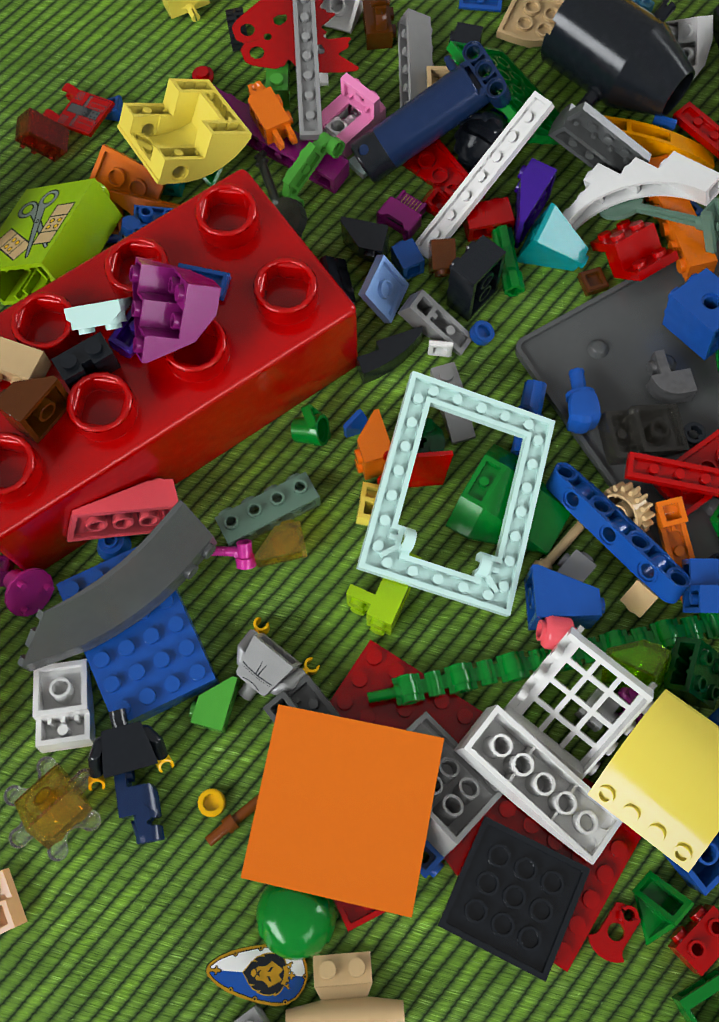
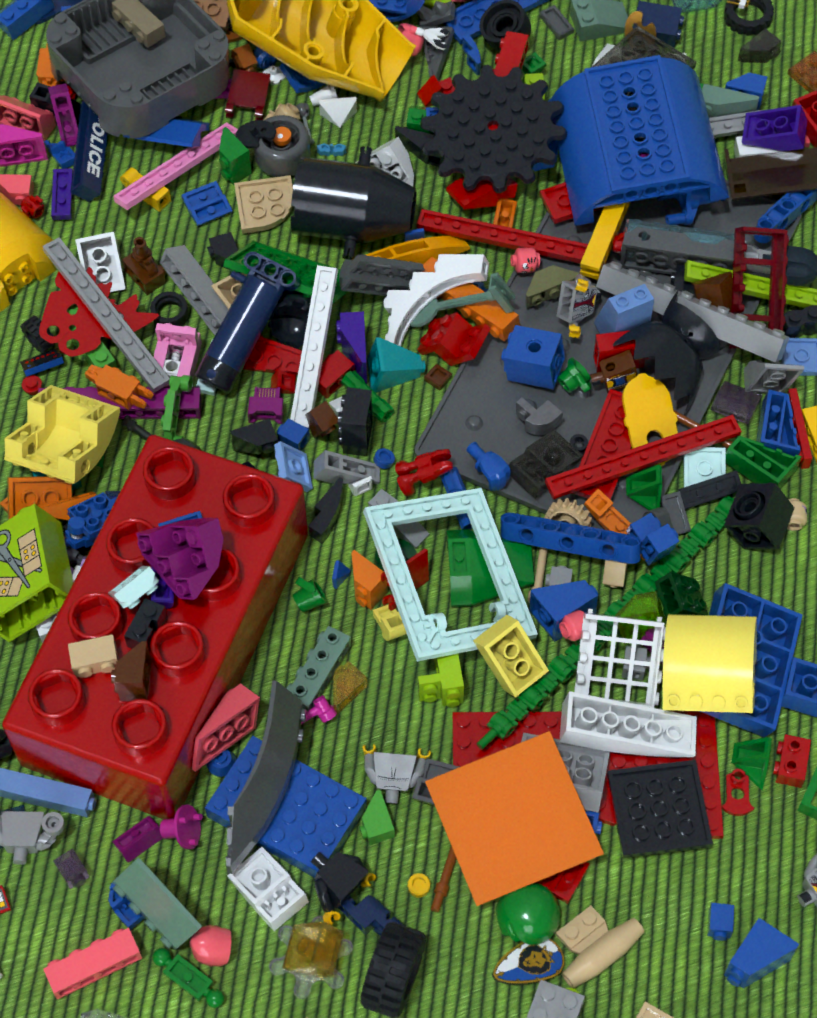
camera: 35 degrees left, 10 degrees down
(103, 891) = (393, 970): none -> black tyre
(224, 59) = (42, 362): none -> tile
(376, 60) = (170, 298): none -> black tyre
(462, 623) = (511, 655): none -> light yellow brick
(517, 366) = (428, 467): none -> red piece

